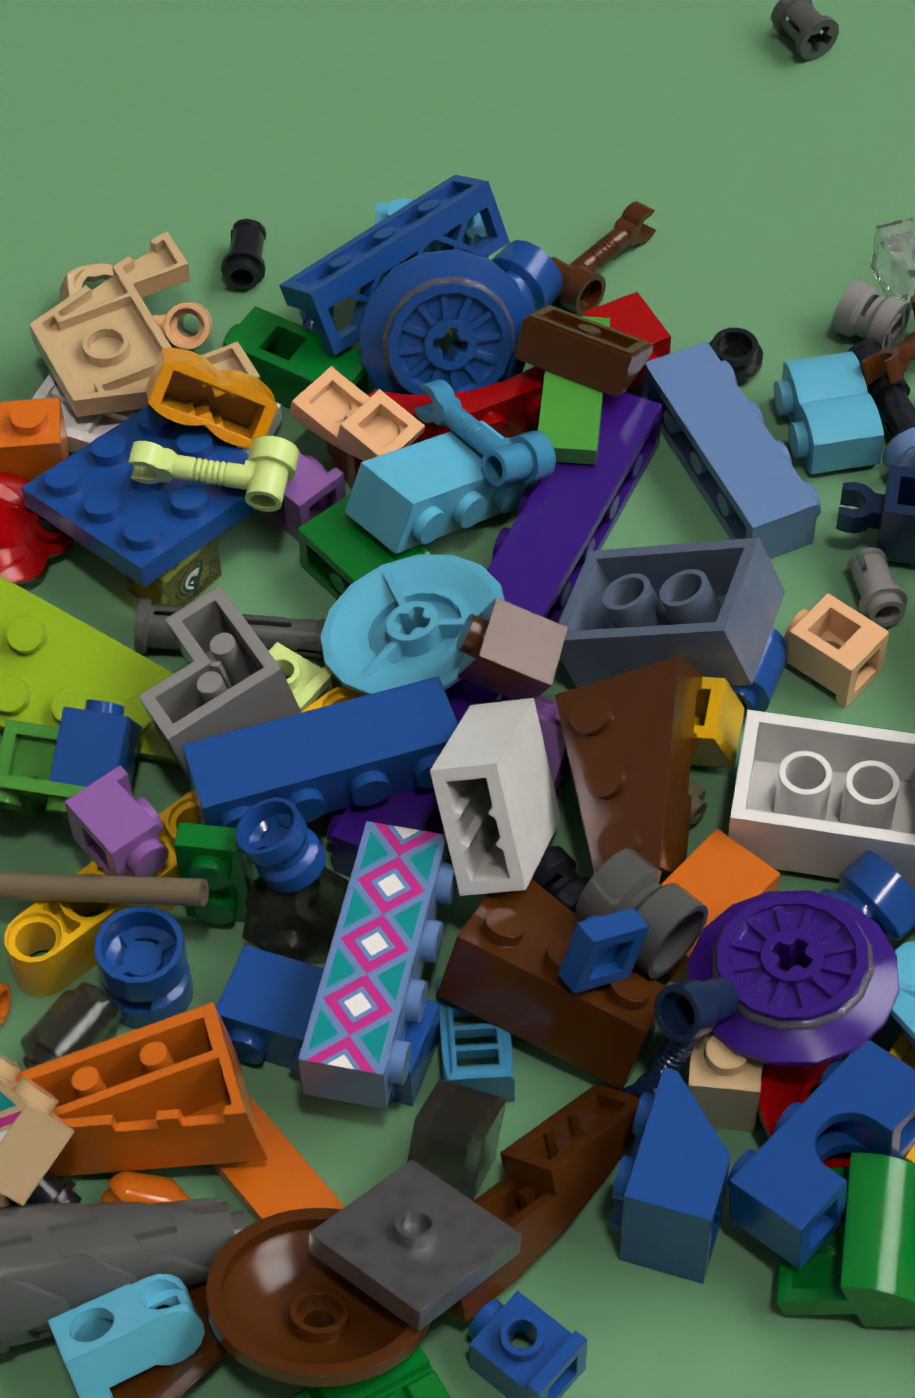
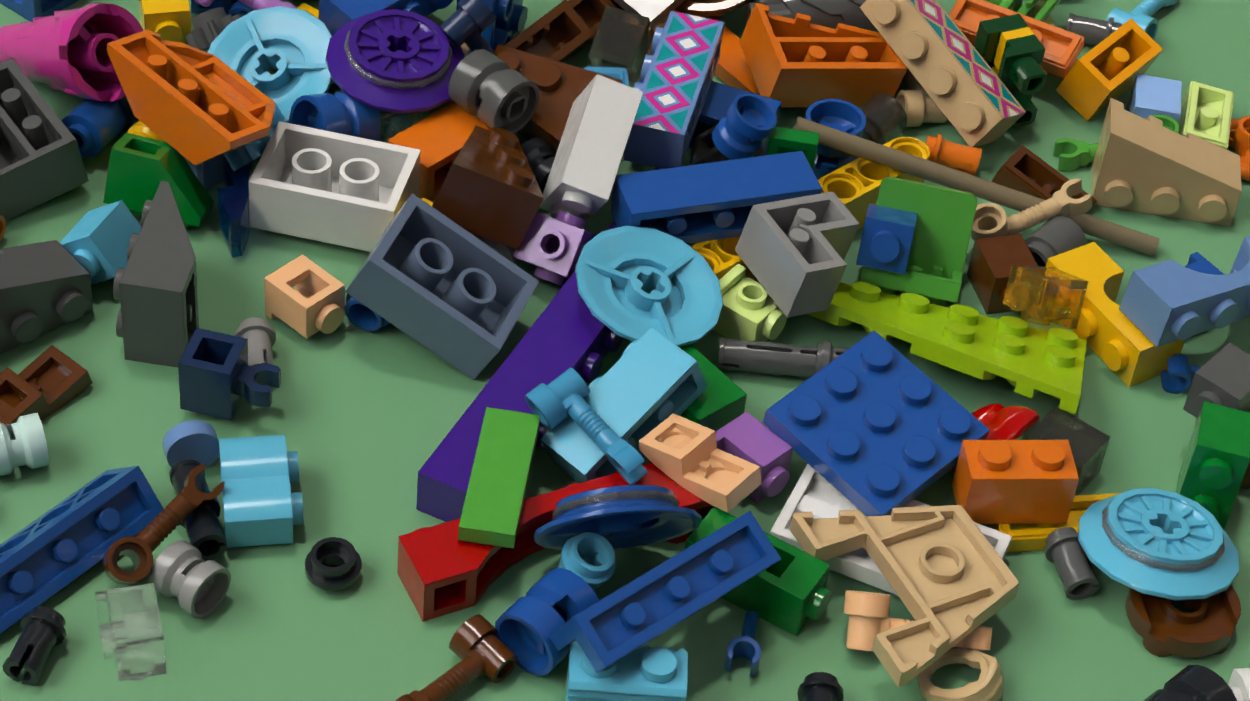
camera: 175 degrees right, 10 degrees down
(115, 828) = (858, 168): medium lavender brick -> none
(196, 394) = (834, 467): light orange brick -> none
(264, 475) = (778, 380): yellowish green brick -> none
(510, 650) = (576, 214): brick -> none
(581, 350) = (488, 486): reddish brown slope -> none
(603, 950) = (526, 46): blue plate -> none
(730, 451) = (358, 461): medium blue brick -> none

